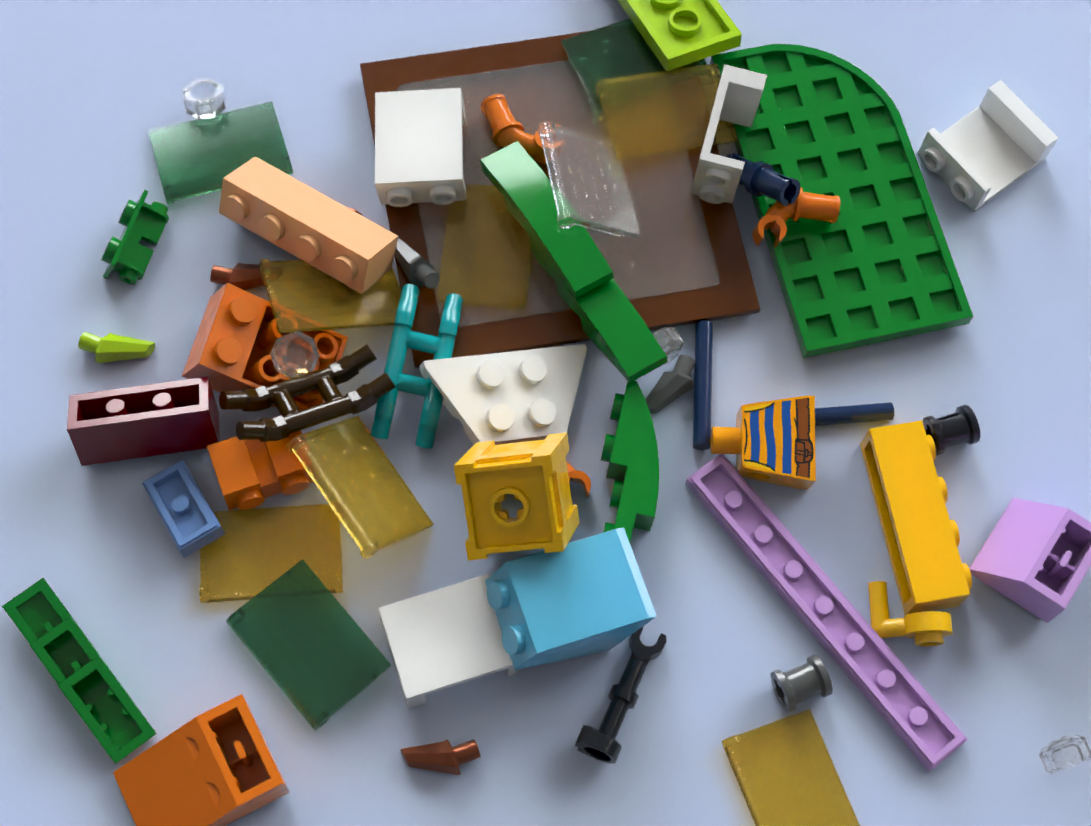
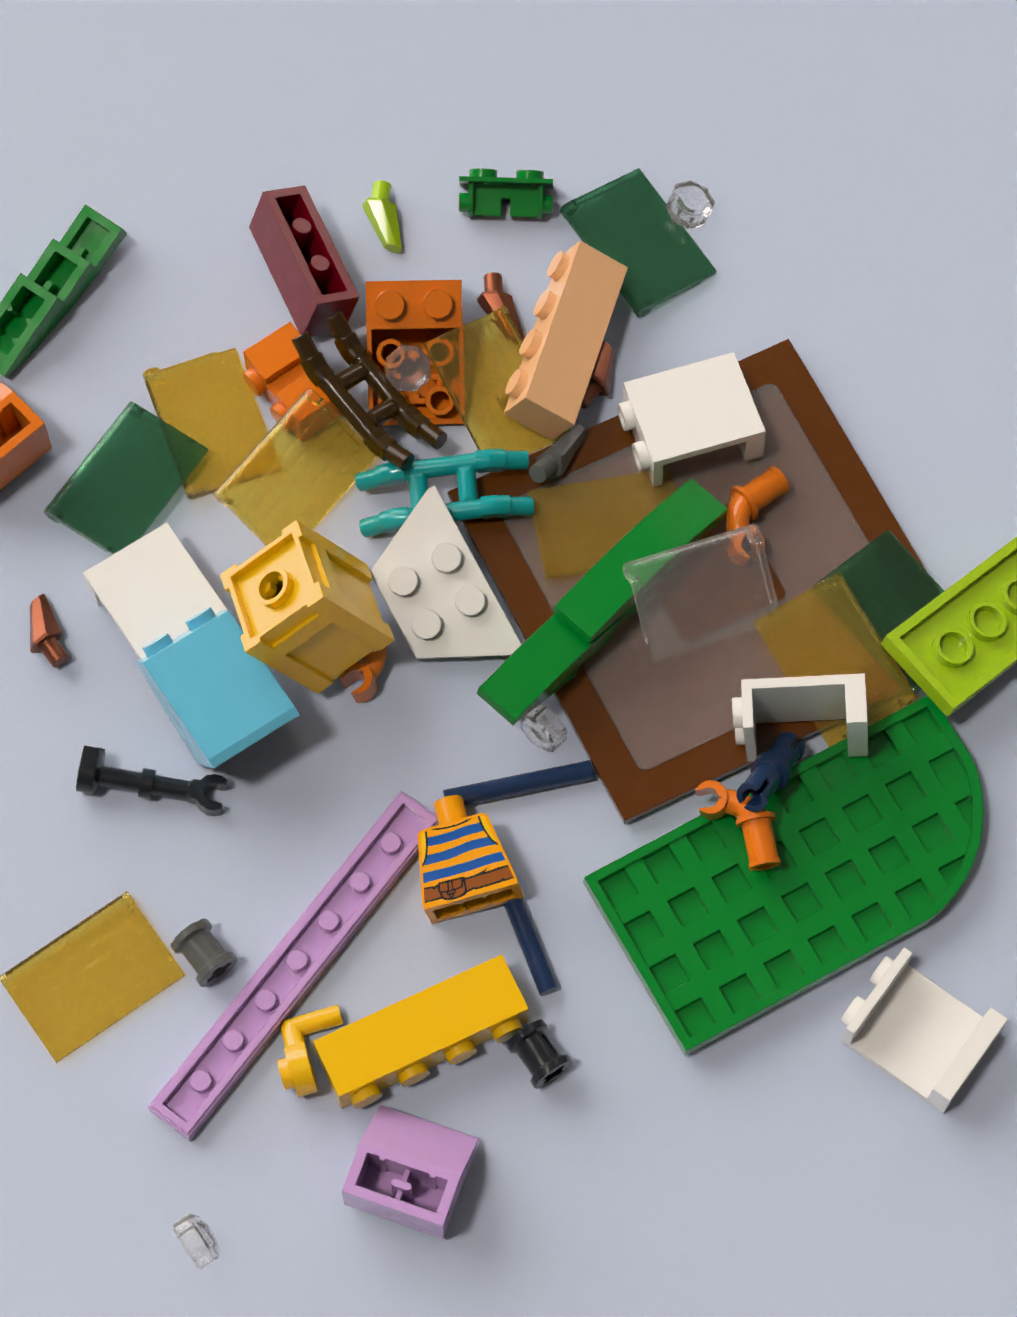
camera: 80 degrees right, 0 degrees up
(183, 508) = (229, 327): medium blue plate -> none
(633, 461) = (408, 730): green slope -> none
(671, 385) = (505, 751): dark grey bar -> none

